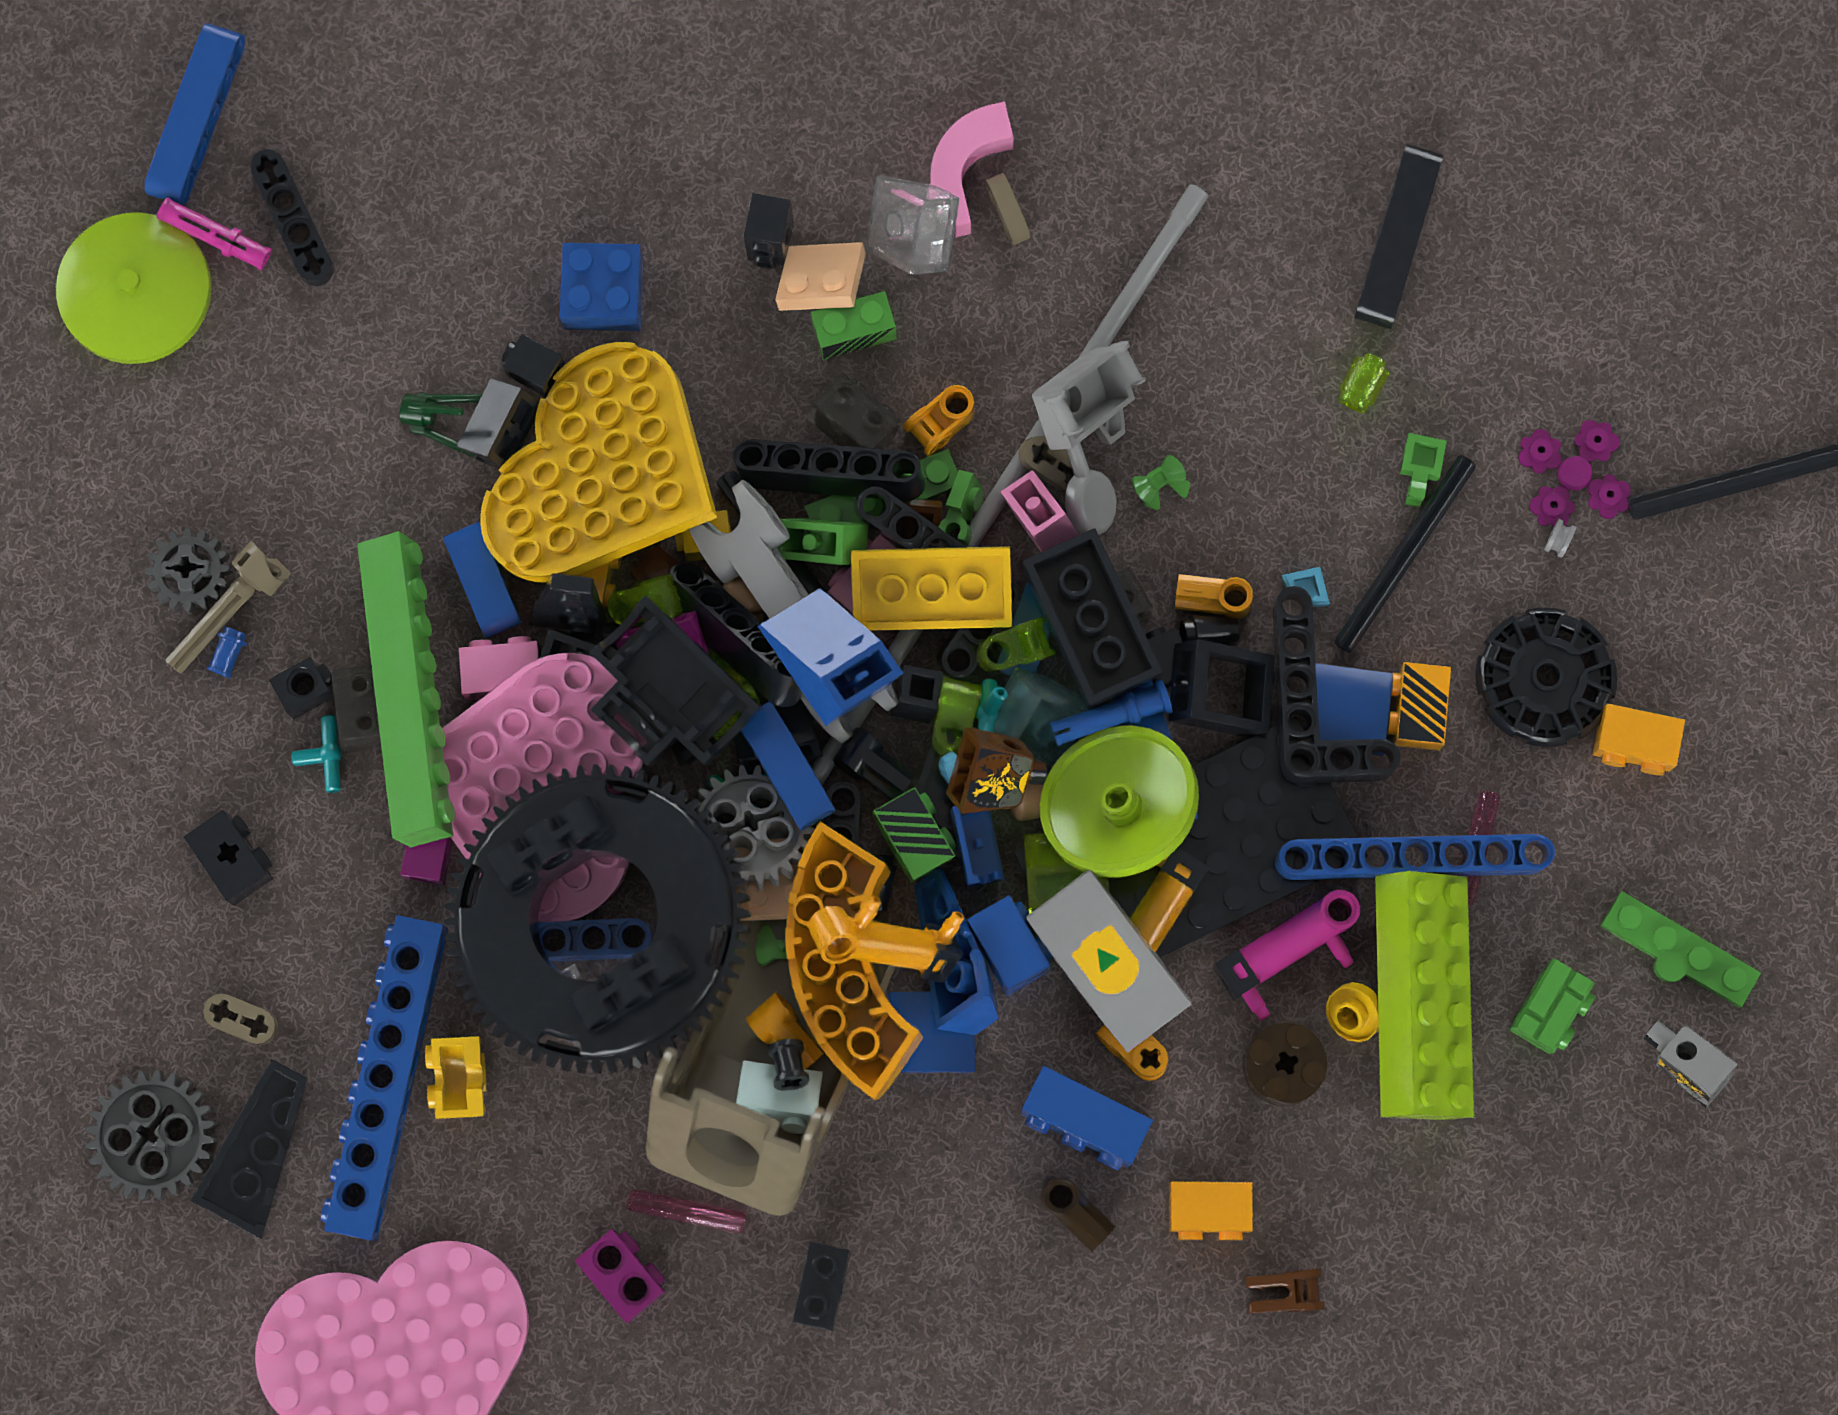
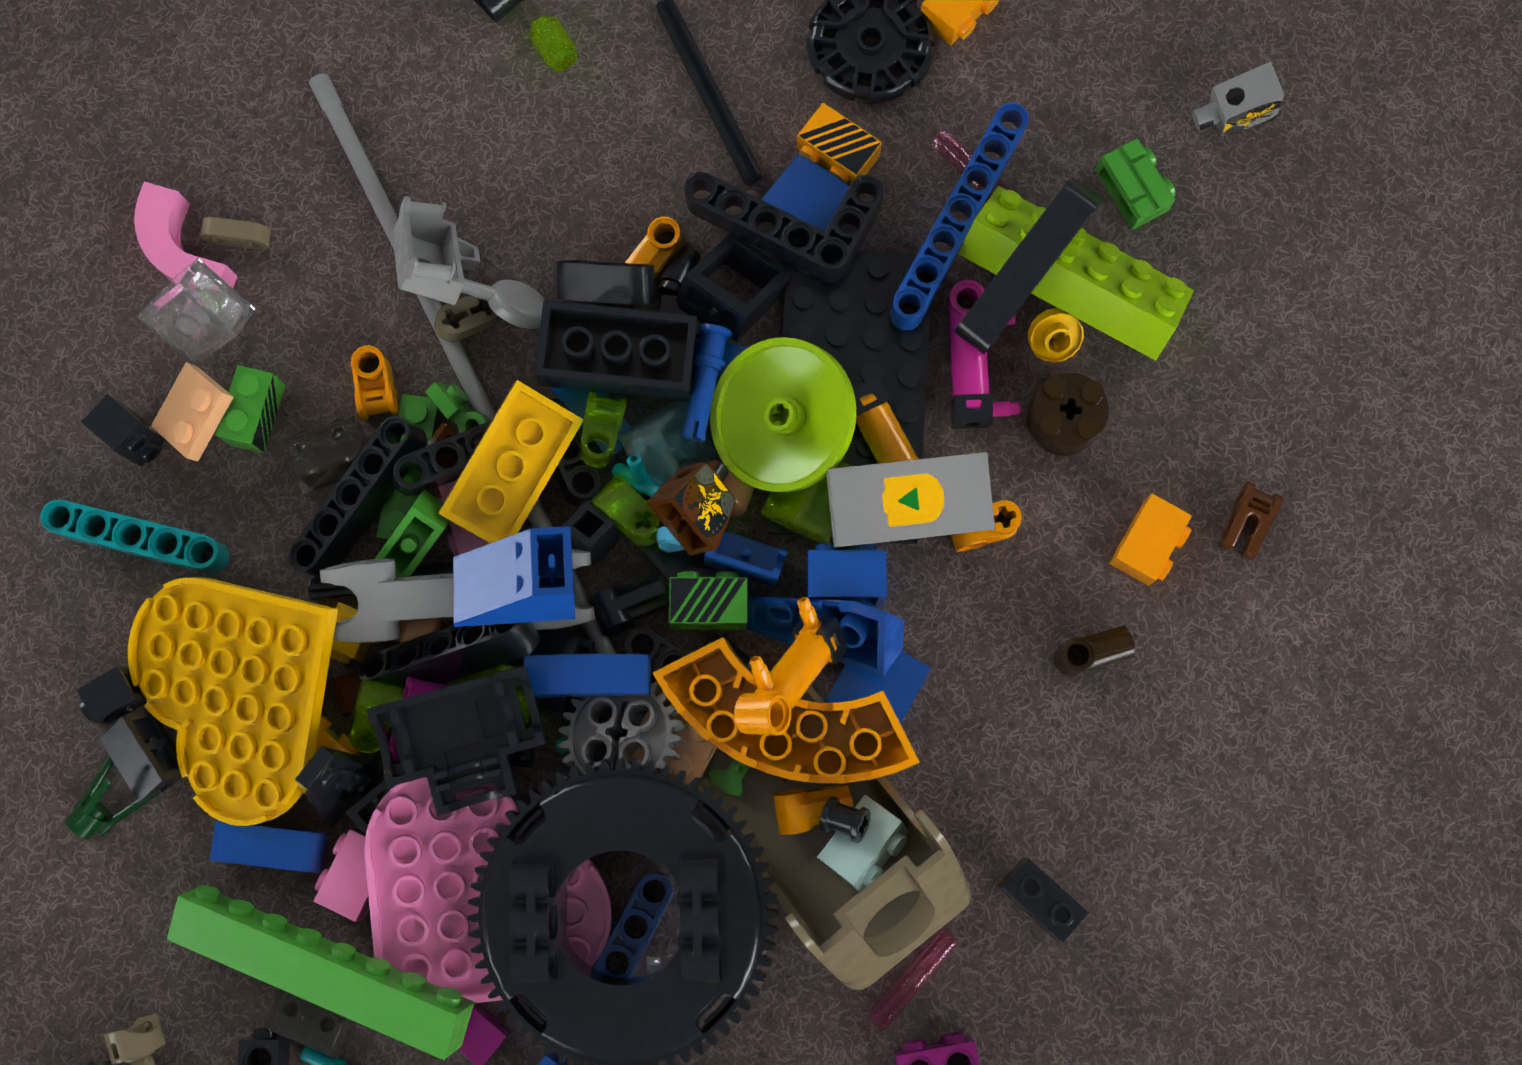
camera: 60 degrees left, 0 degrees up
(601, 286) = (81, 599): blue brick -> none
(682, 279) = (118, 535): none -> teal beam
(1038, 512) = (501, 347): bright pink brick -> none
(1085, 1119) = (1026, 597): blue brick -> none
(1156, 569) = (605, 282): none -> black beam
(1170, 473) = (532, 231): bright green piece -> none
(1312, 582) = (682, 172): medium azure tile -> none
(1401, 945) = (1028, 264): none -> black beam
(1423, 462) = (645, 35): bright green plate -> none
(1679, 950) = (1142, 68): bright green hinge -> none

